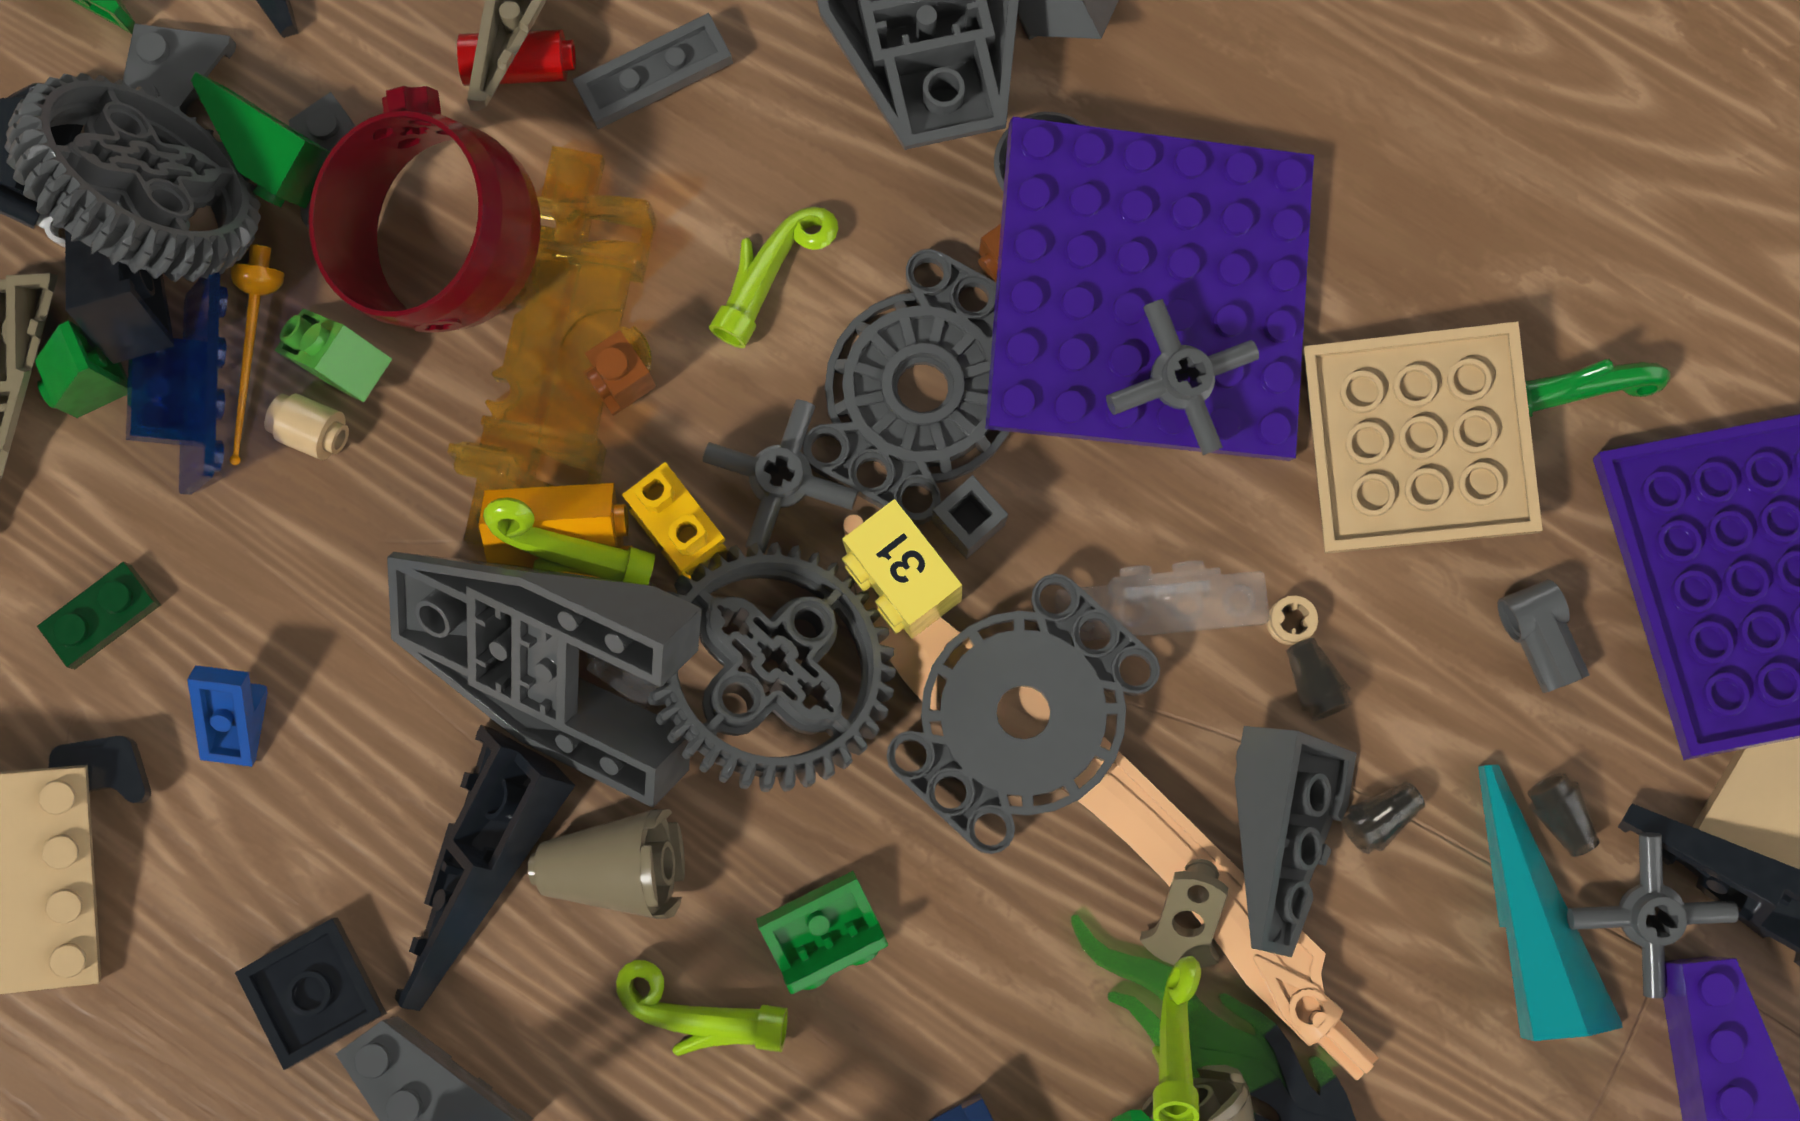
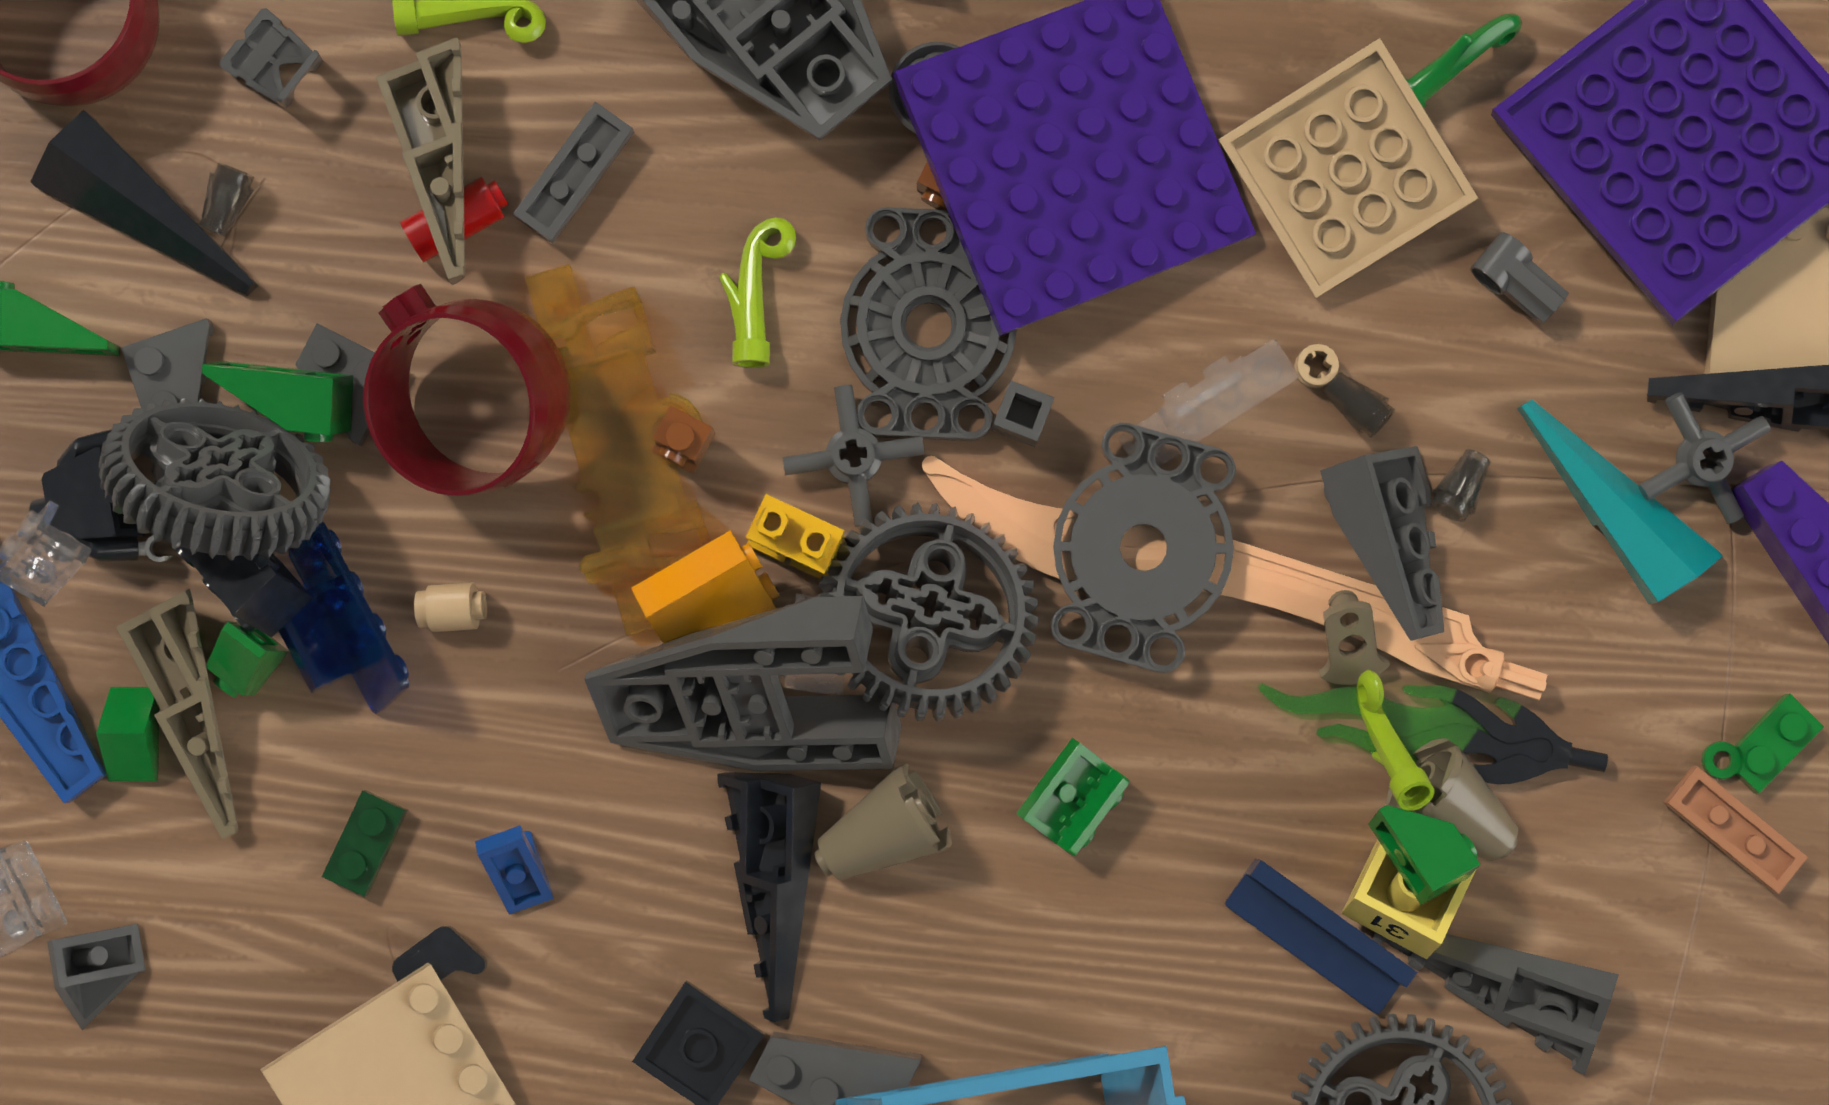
camera: 30 degrees left, 5 degrees up
(257, 281) = (343, 511): light orange sword -> none
(332, 353) = (439, 538): bright green slope -> none
(513, 524) = (677, 603): lime plant -> none
(708, 1025) = (1018, 914): lime plant -> none
(901, 569) = (993, 484): light yellow brick -> none
(1182, 394) = (1124, 207): dark grey bar -> none
(1564, 813) = (1599, 411): clear smoke cone -> none

